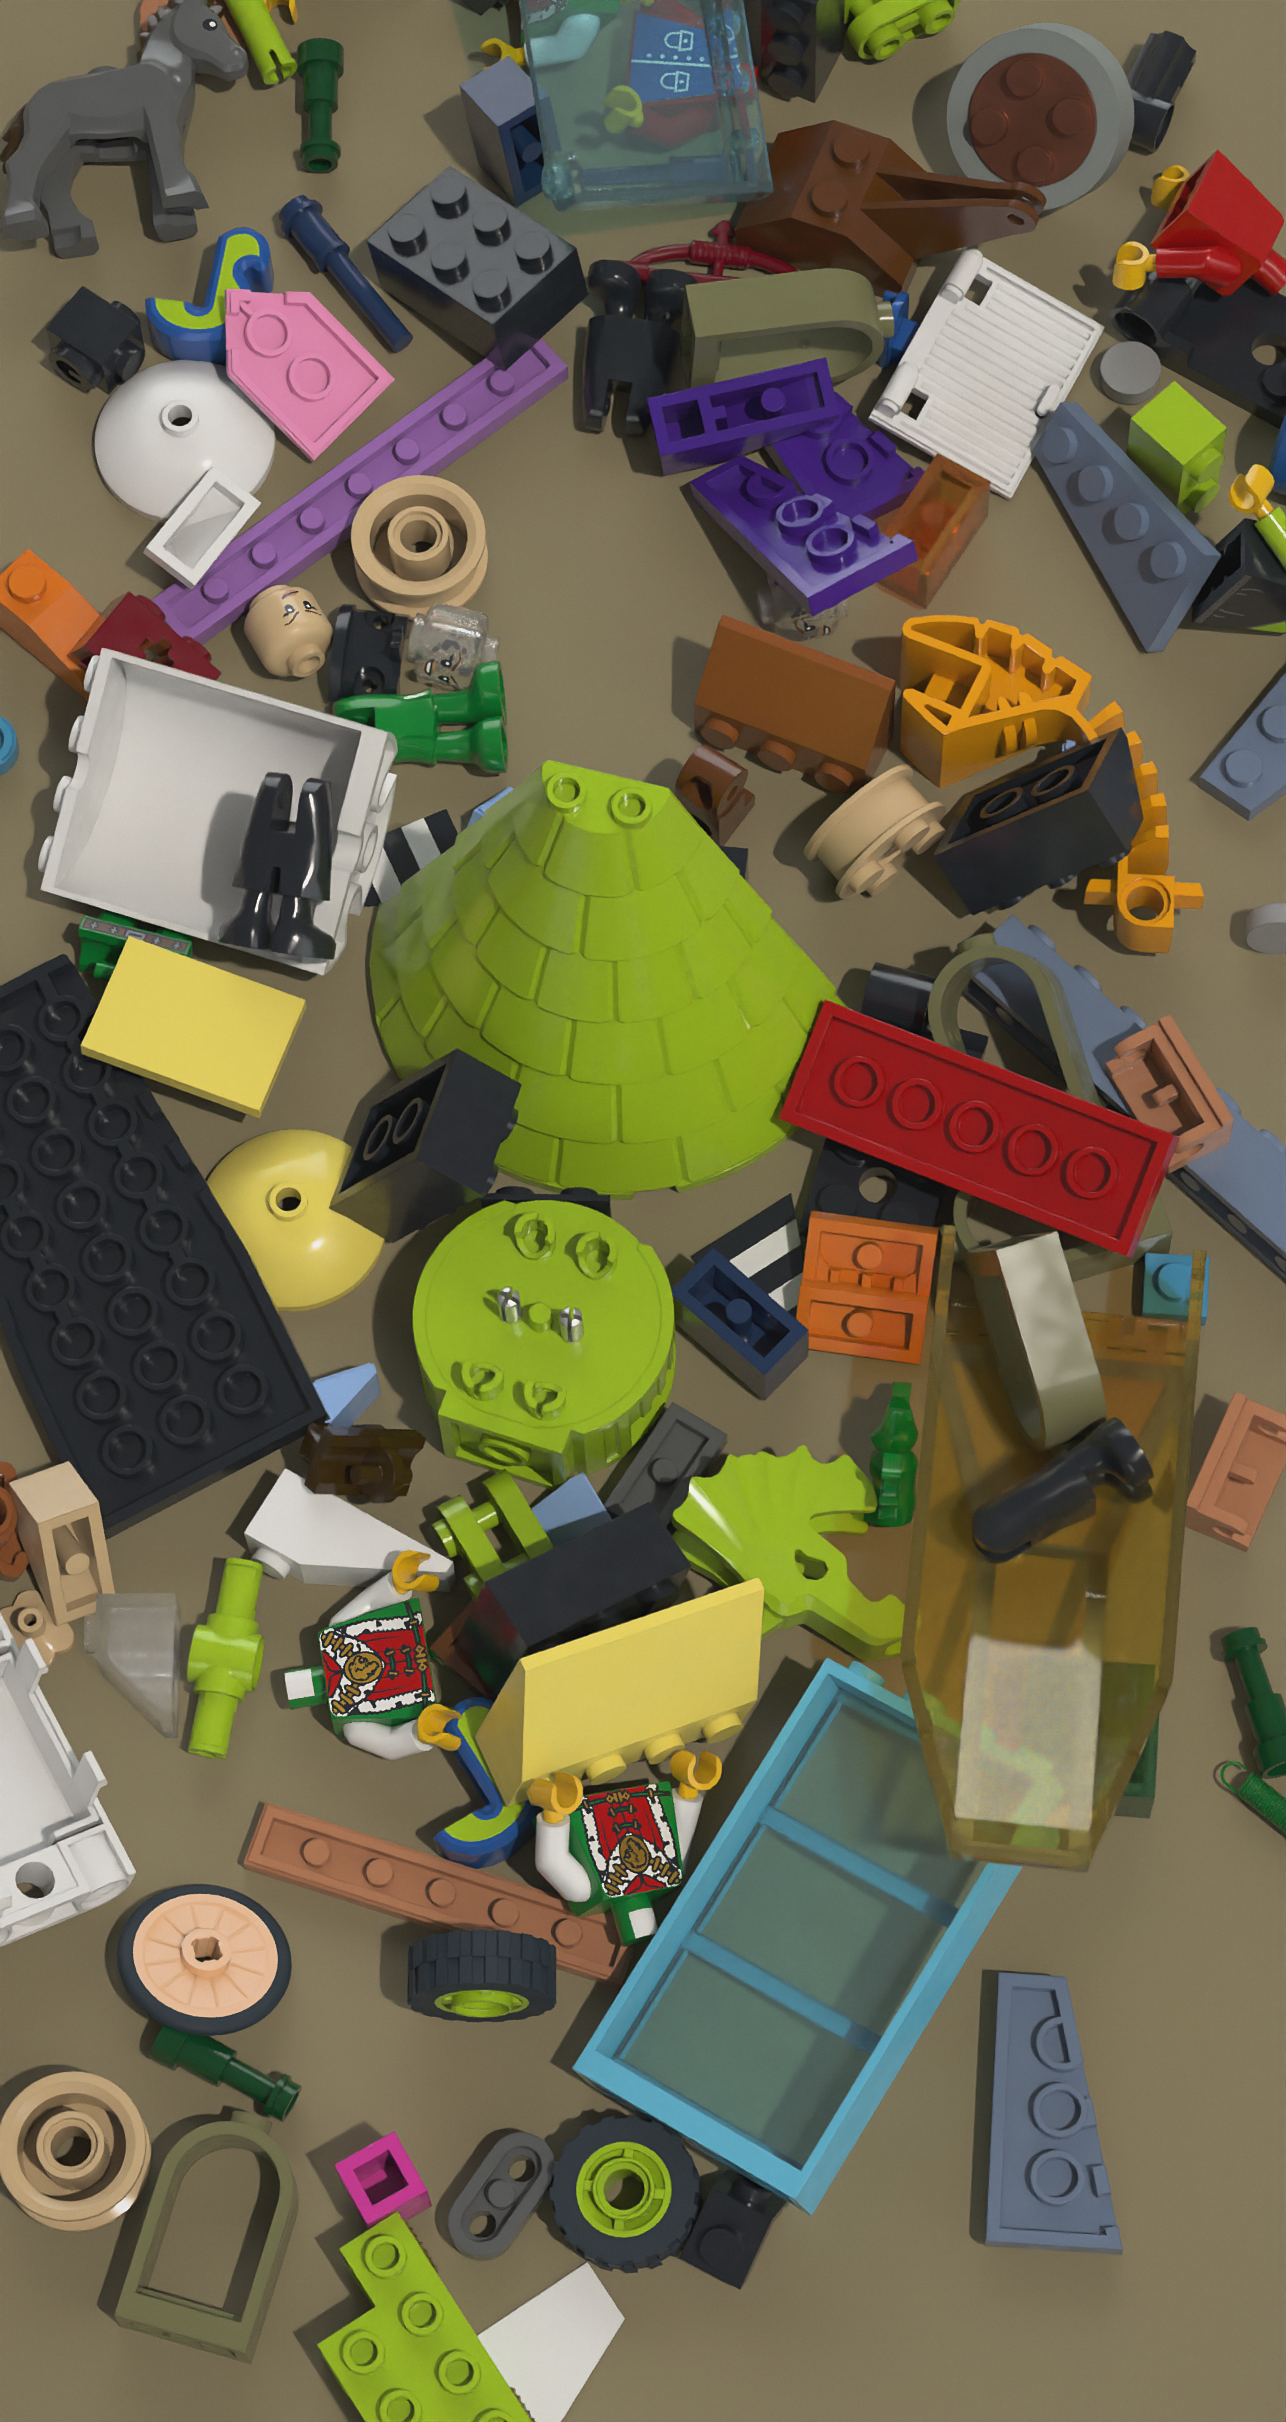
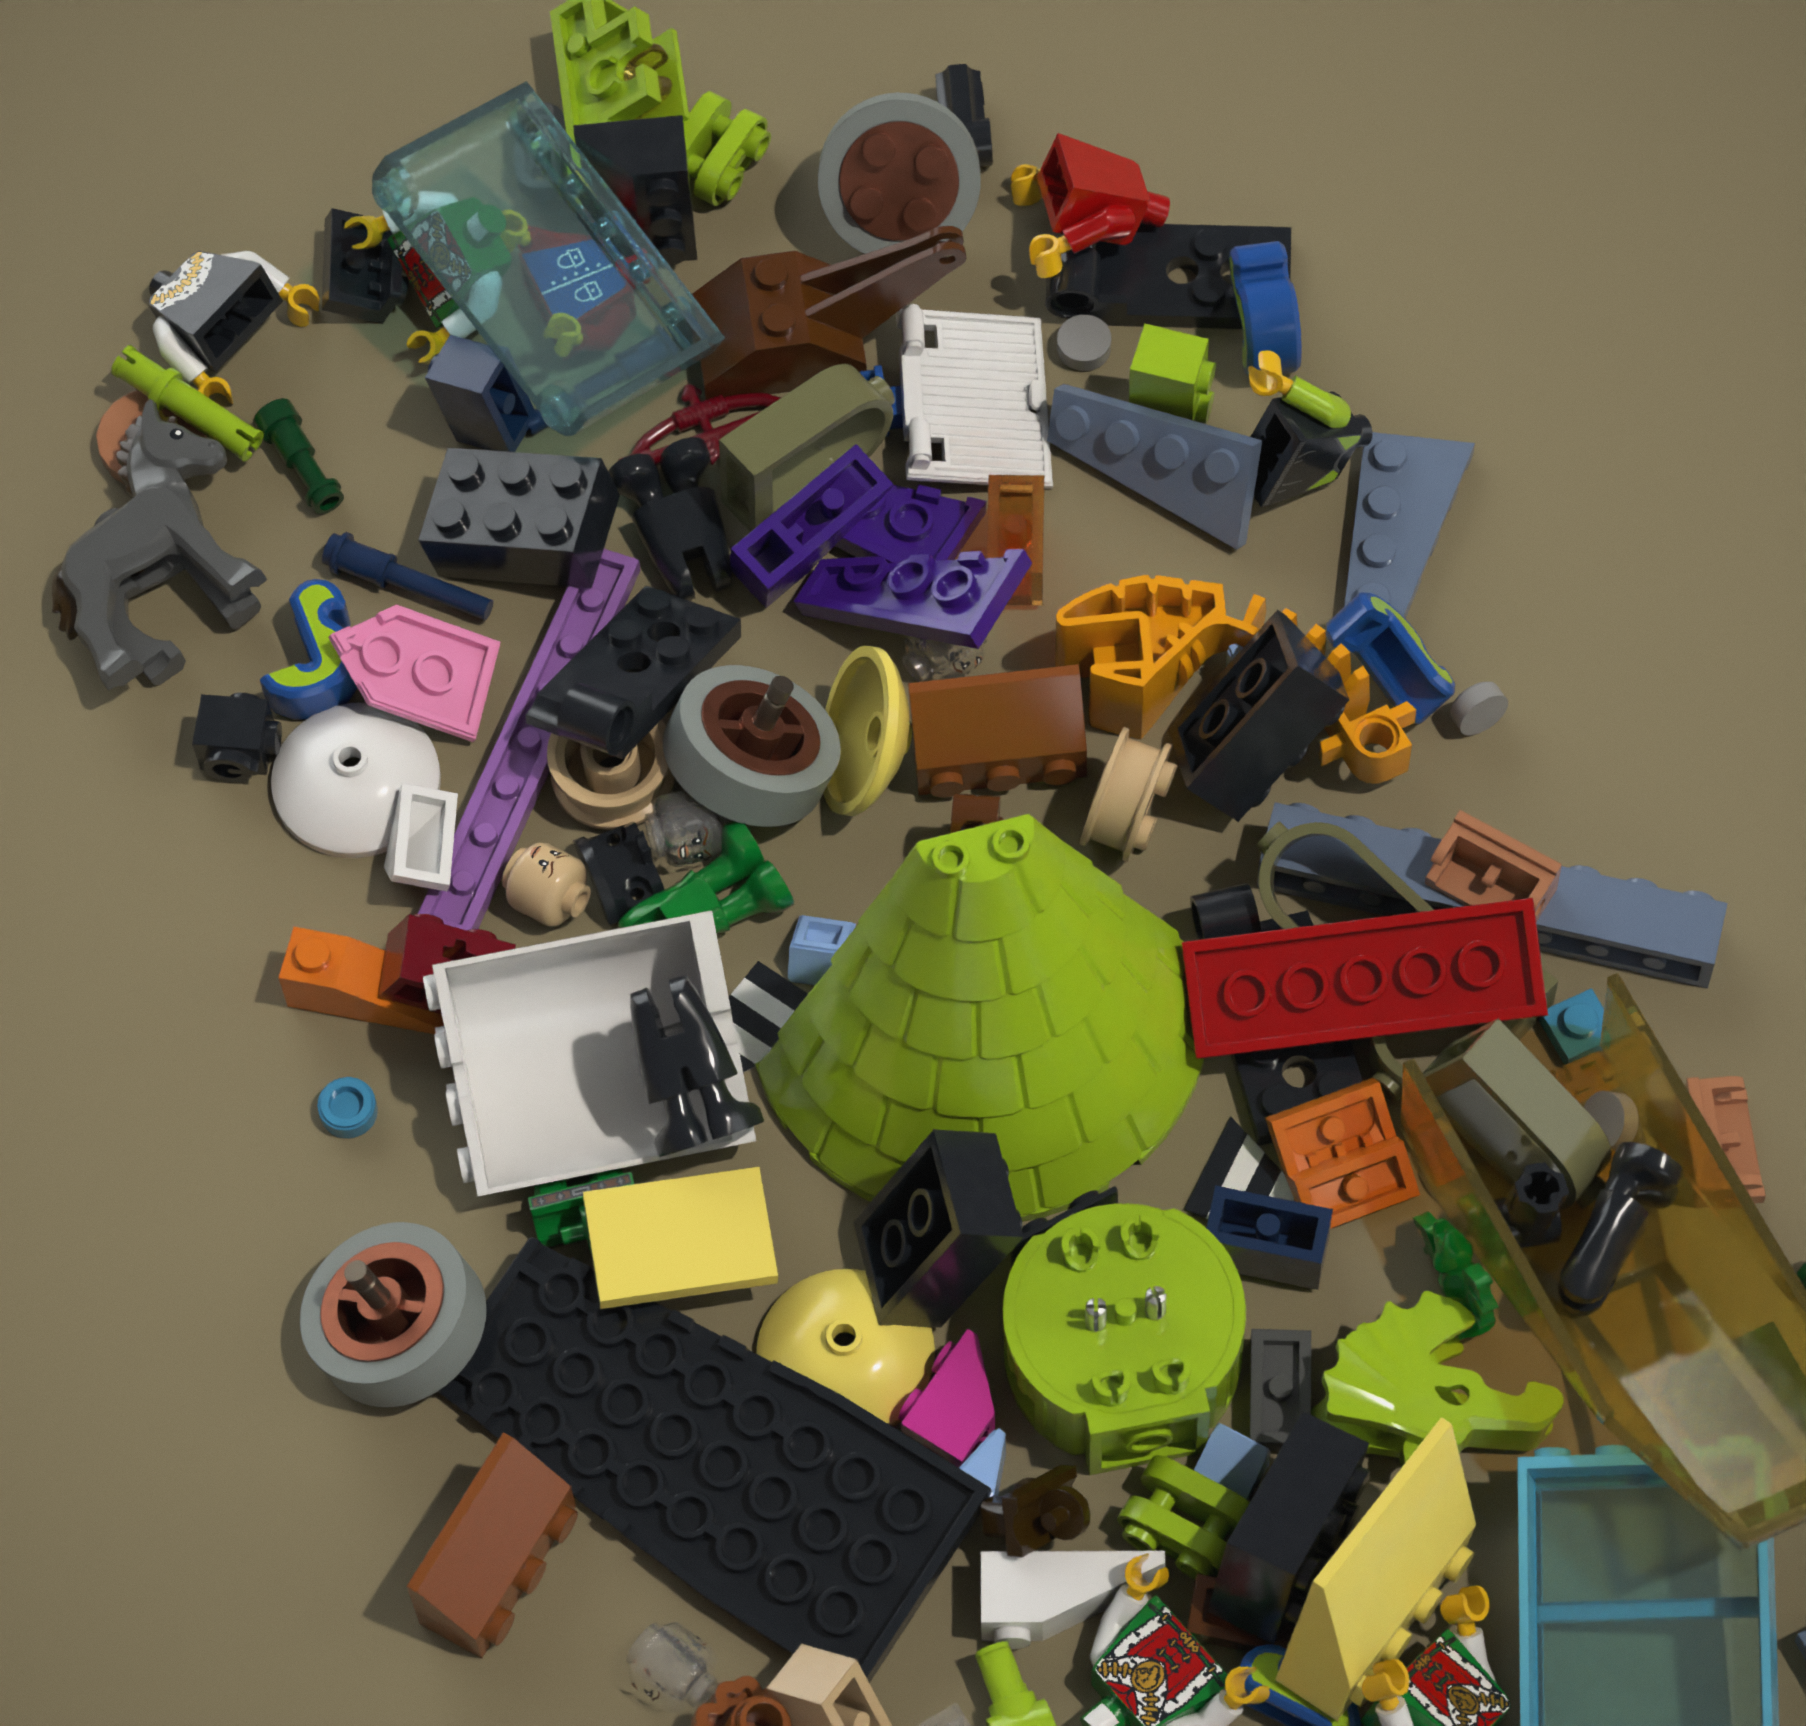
camera: 30 degrees left, 5 degrees down
(354, 1320) = (955, 1407): none -> dark pink slope
(435, 491) = (615, 709): none -> black hinge
(552, 599) = (751, 745): none -> wheel
(666, 643) = (872, 728): none -> light yellow dish
(992, 1433) = (1534, 1206): none -> black piece
(1136, 1392) = (1615, 1115): none -> light grey tile
(1223, 830) = (1391, 654): none -> blue animal

